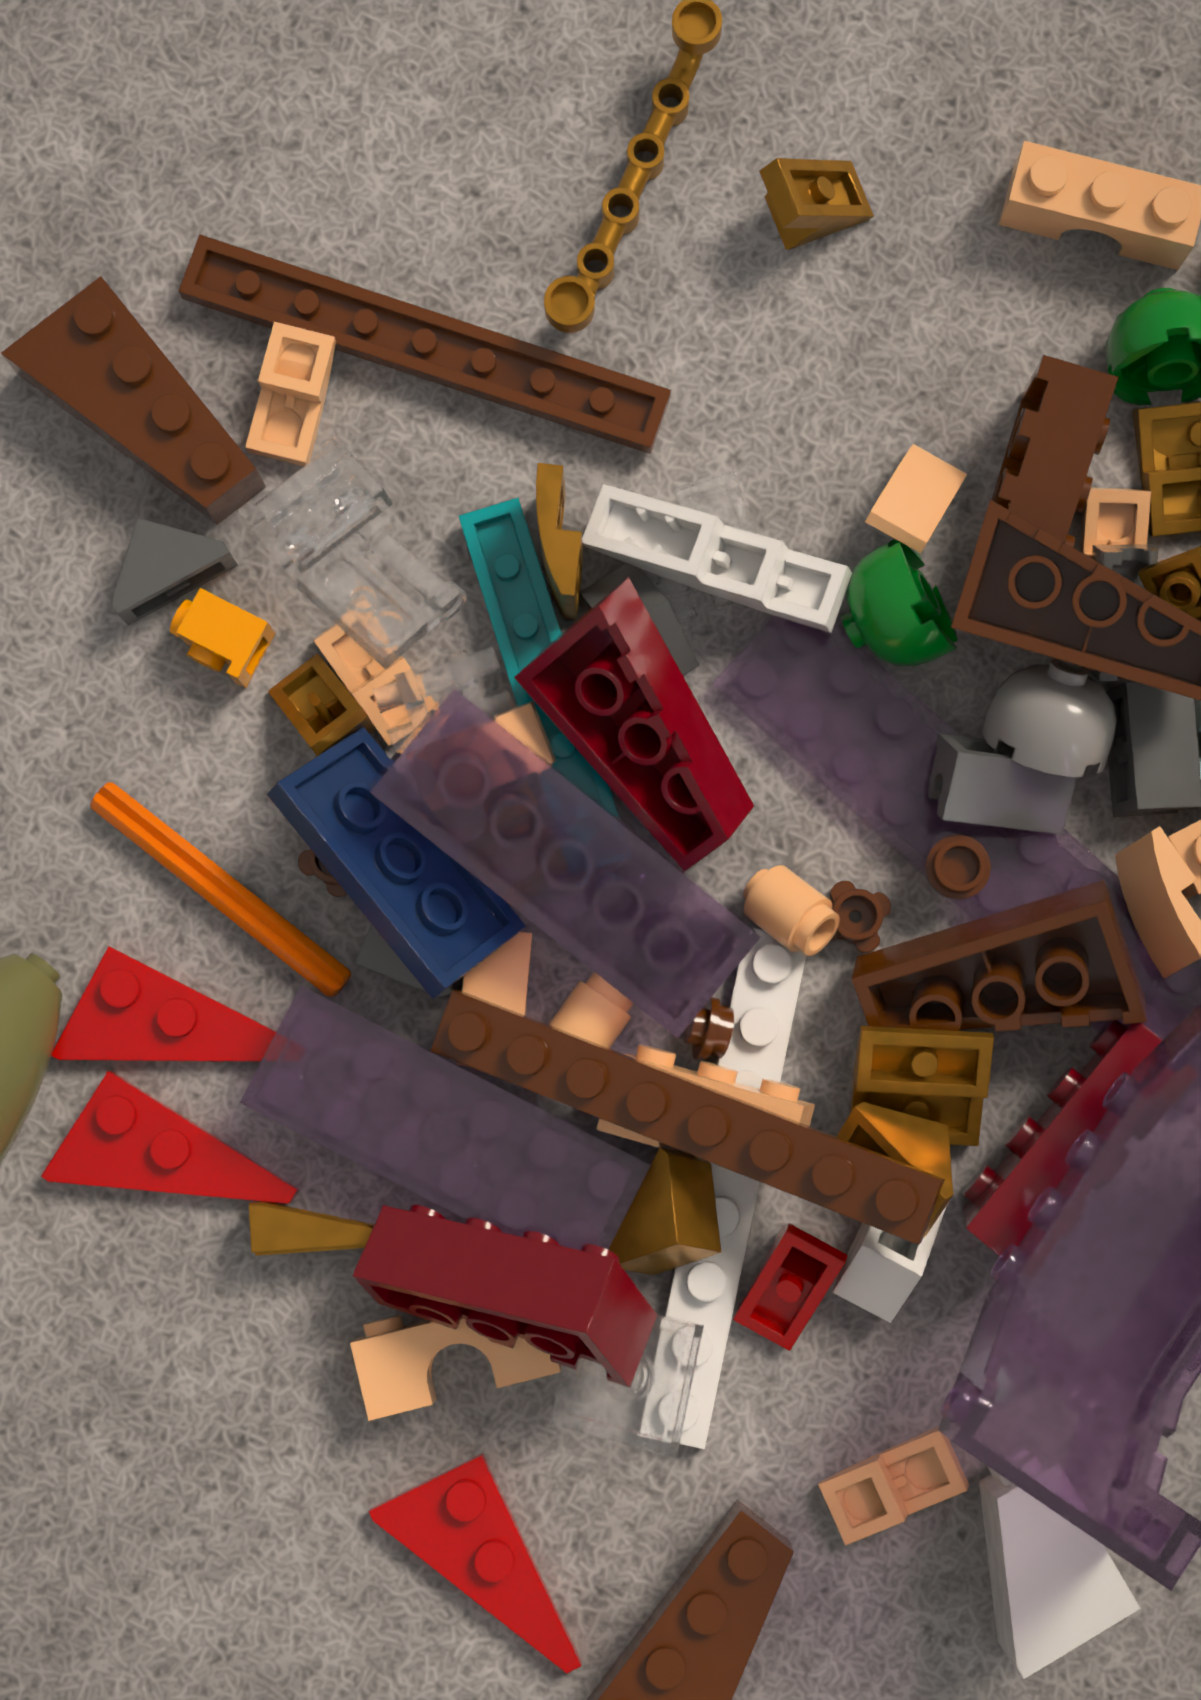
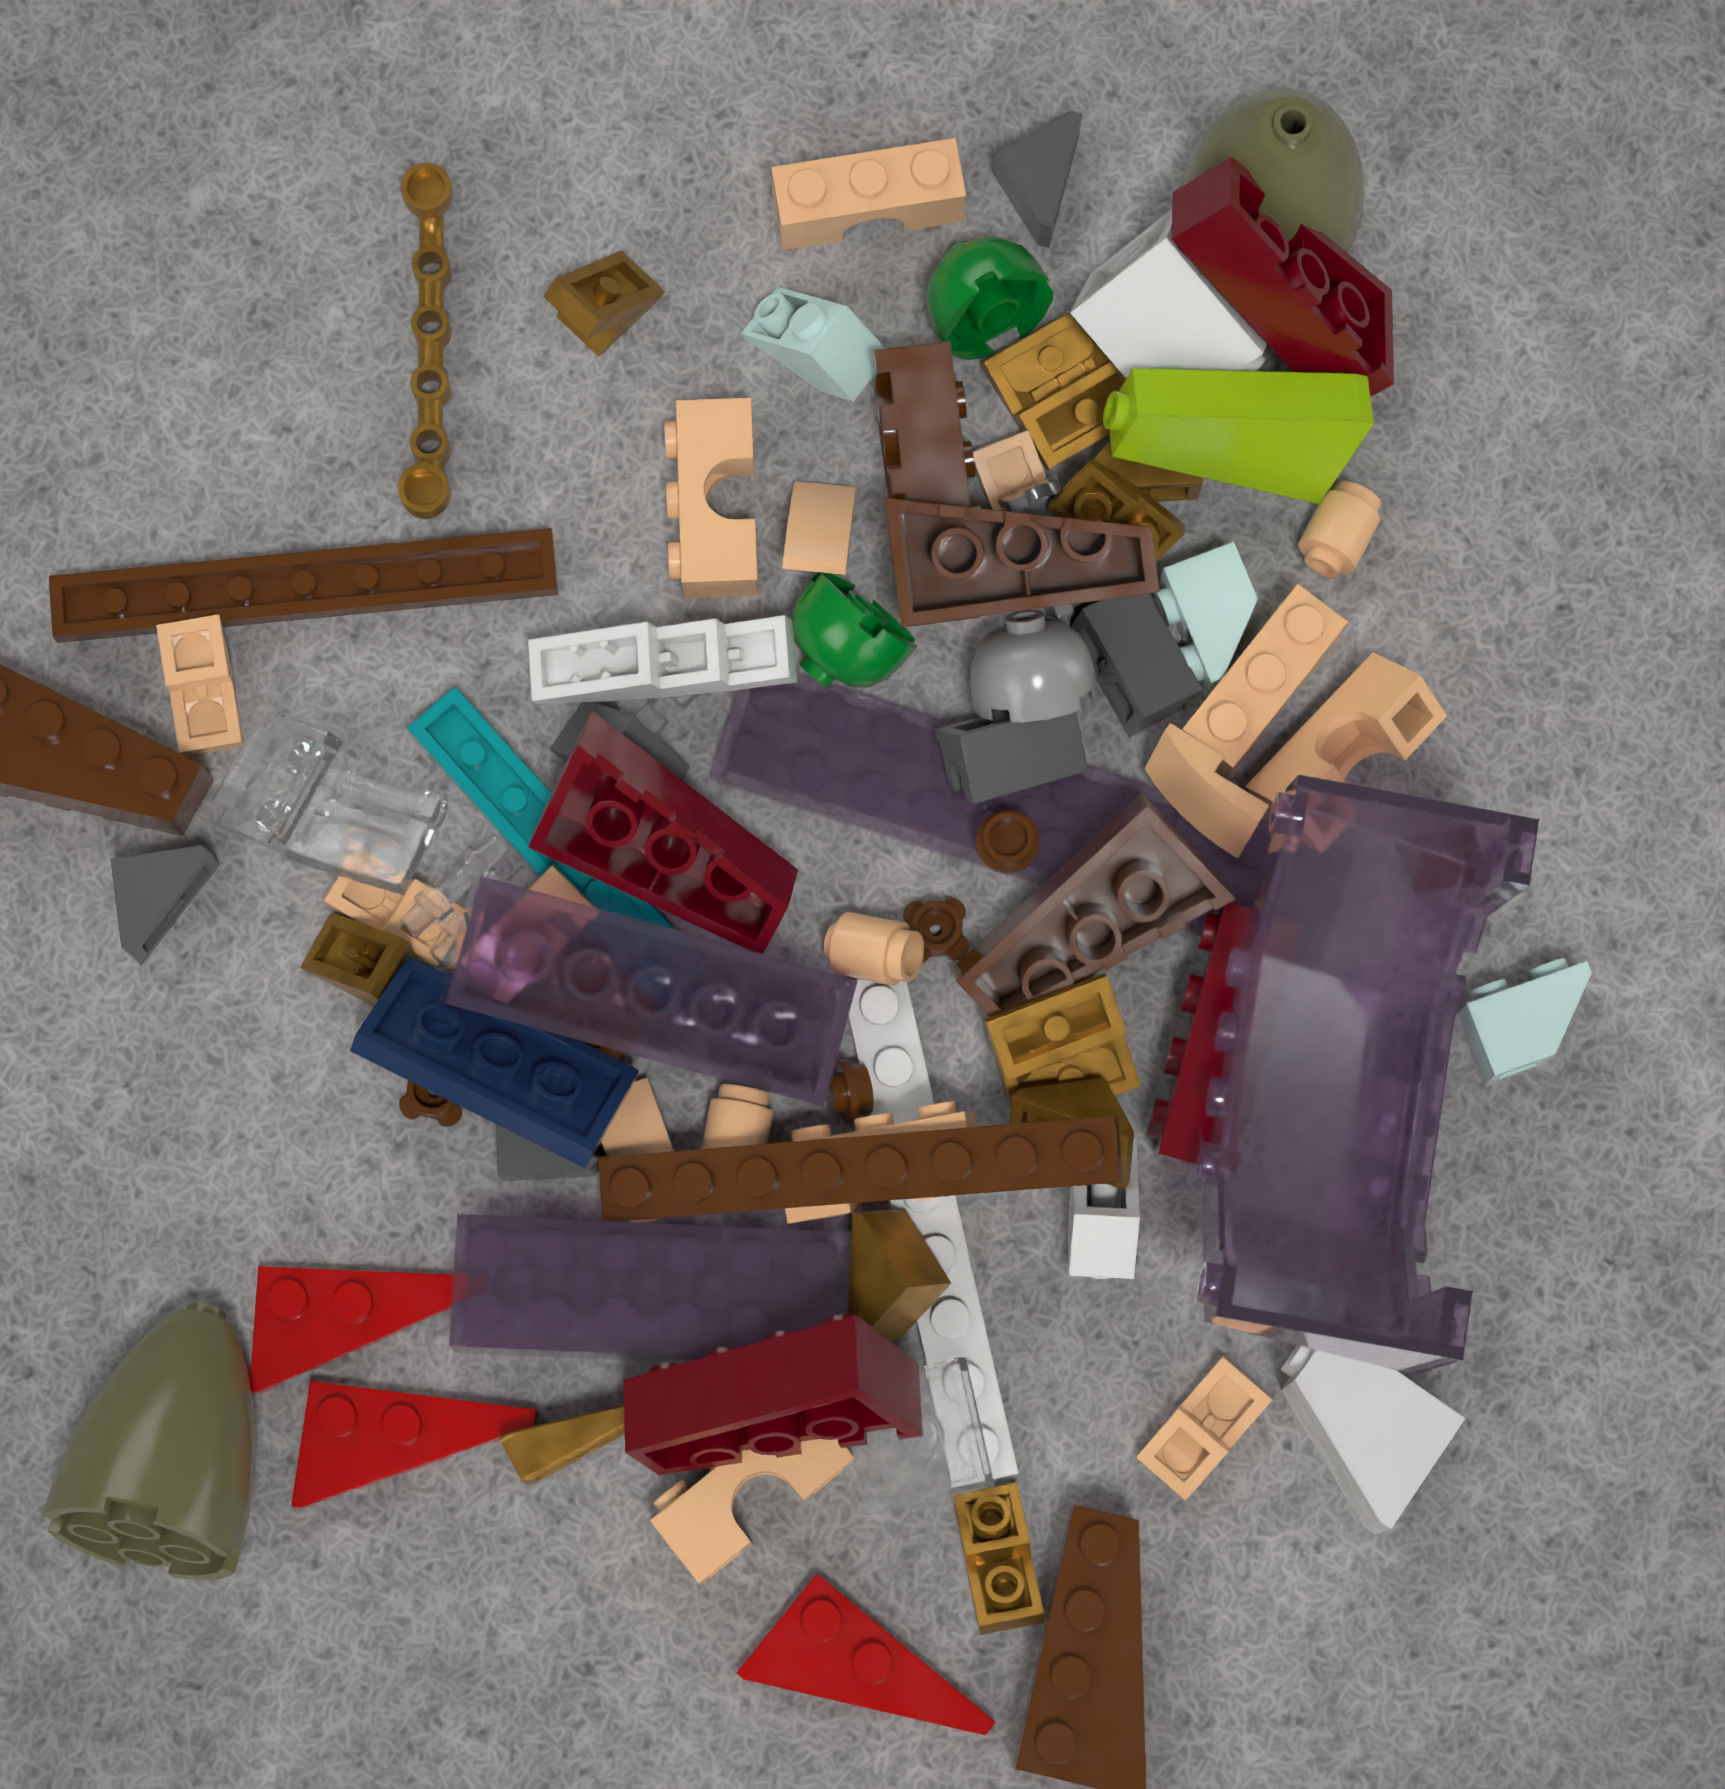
camera: 30 degrees left, 5 degrees down
(220, 889) = (337, 1167): orange axle -> none
(222, 635) = (236, 932): light orange brick -> none
(560, 548) = (513, 714): pearl gold slope -> none
(651, 1519) = (998, 1559): none -> pearl gold slope
(789, 1286) = (1027, 1287): red slope -> none
(853, 377) = (711, 444): none -> light nougat arch
(991, 322) = (815, 341): none -> light aqua slope

